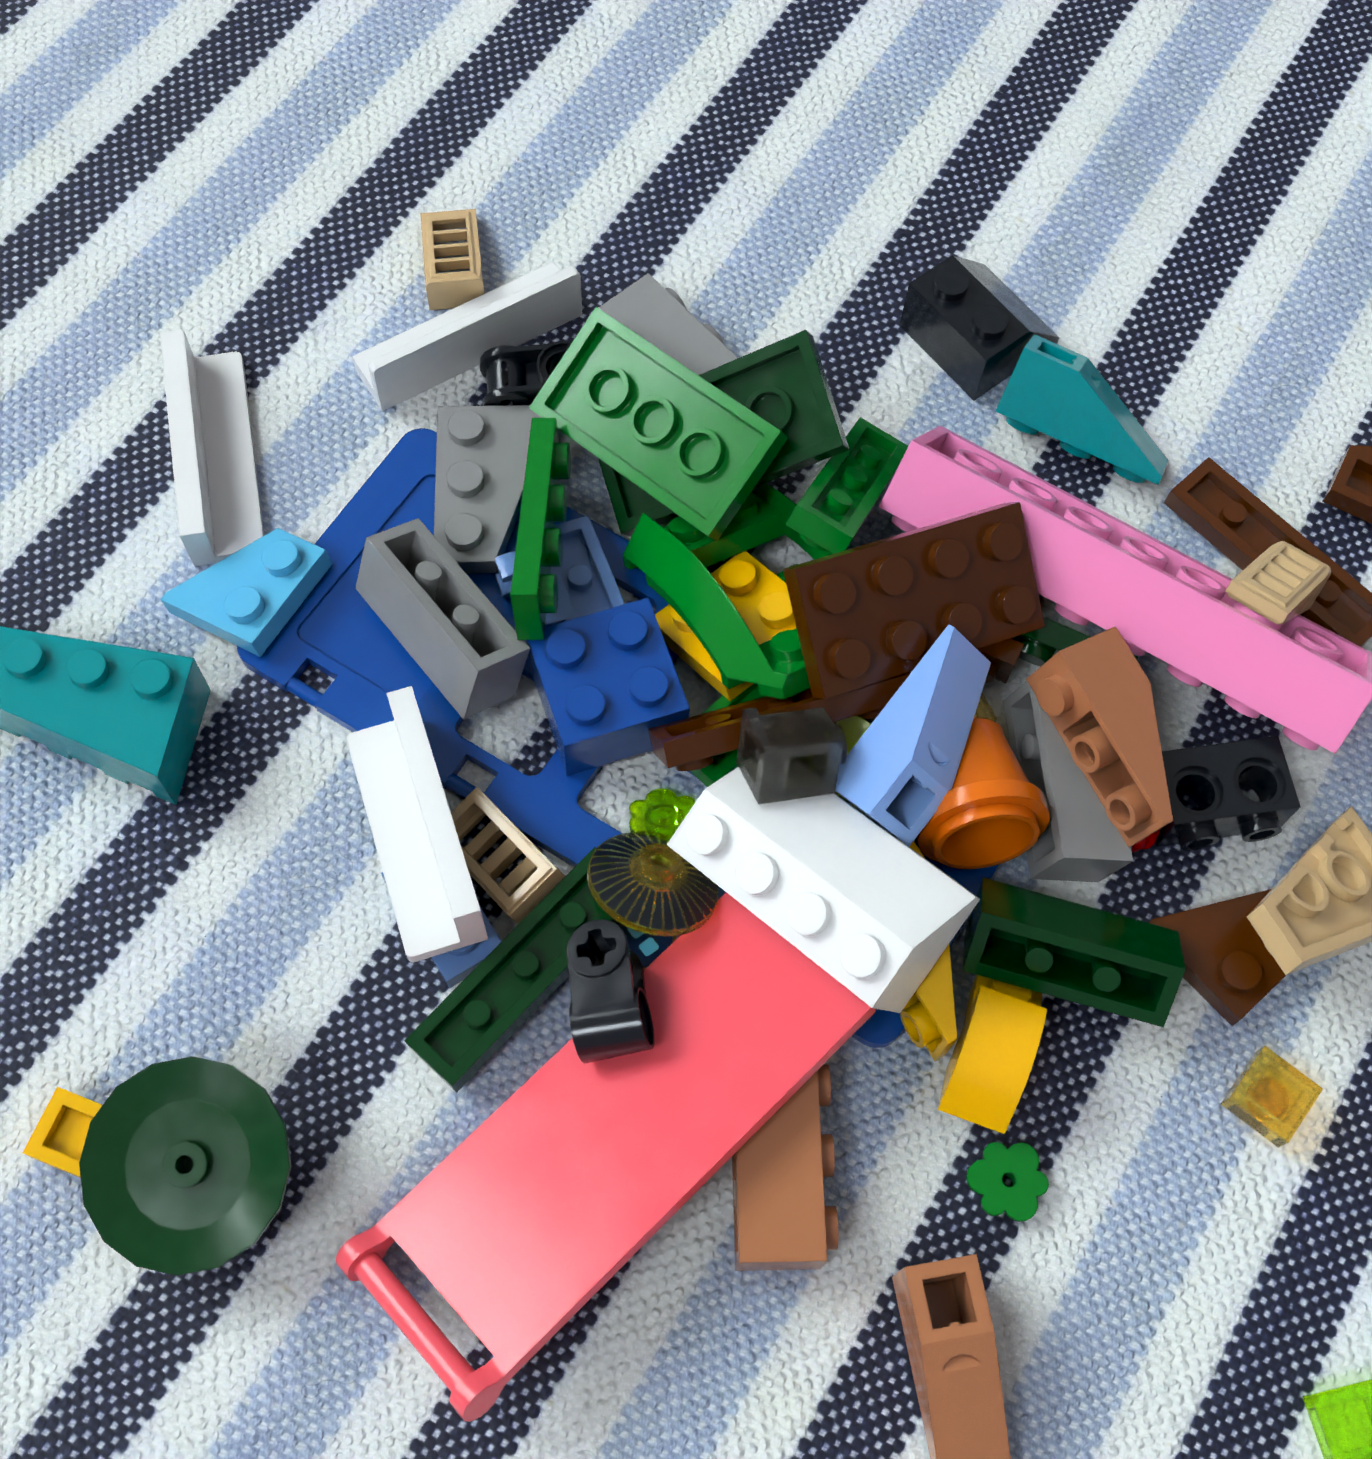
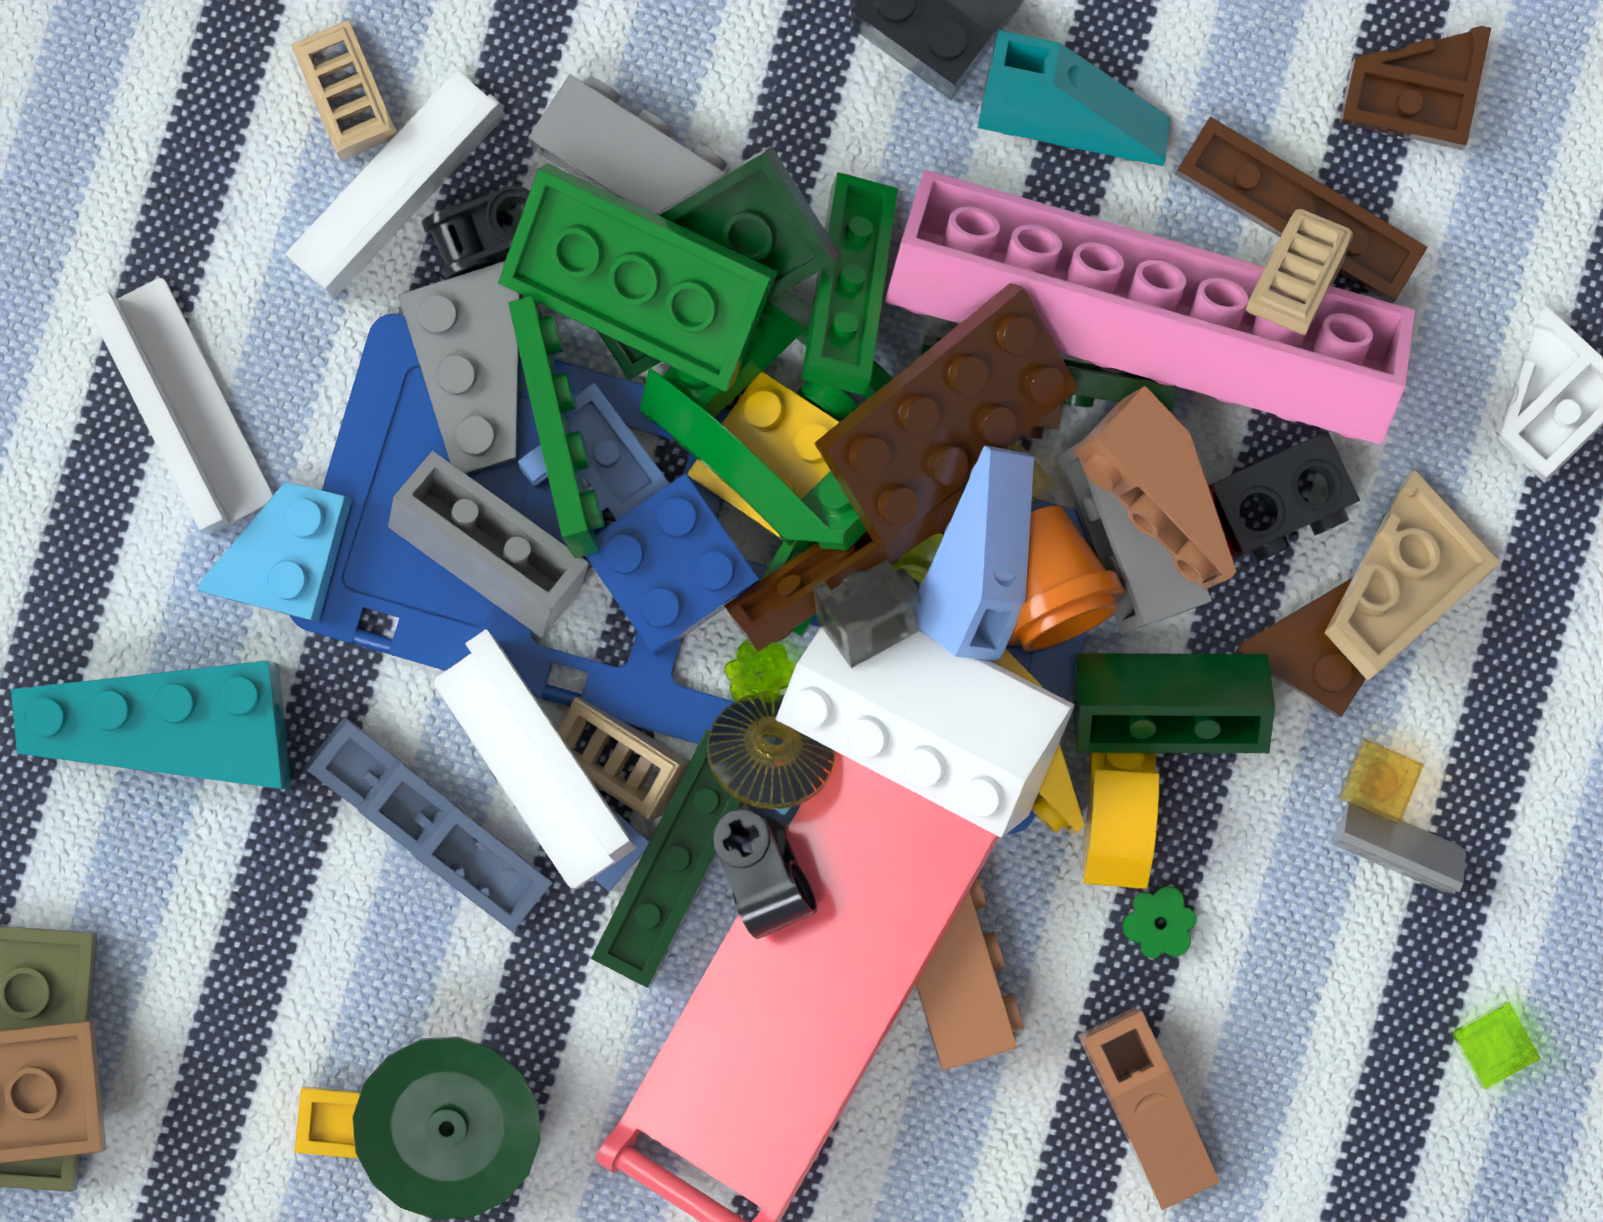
camera: 15 degrees left, 20 degrees up
(293, 868) = (428, 824): none -> sand blue slope
(1280, 1178) = (1402, 849): none -> light grey slope

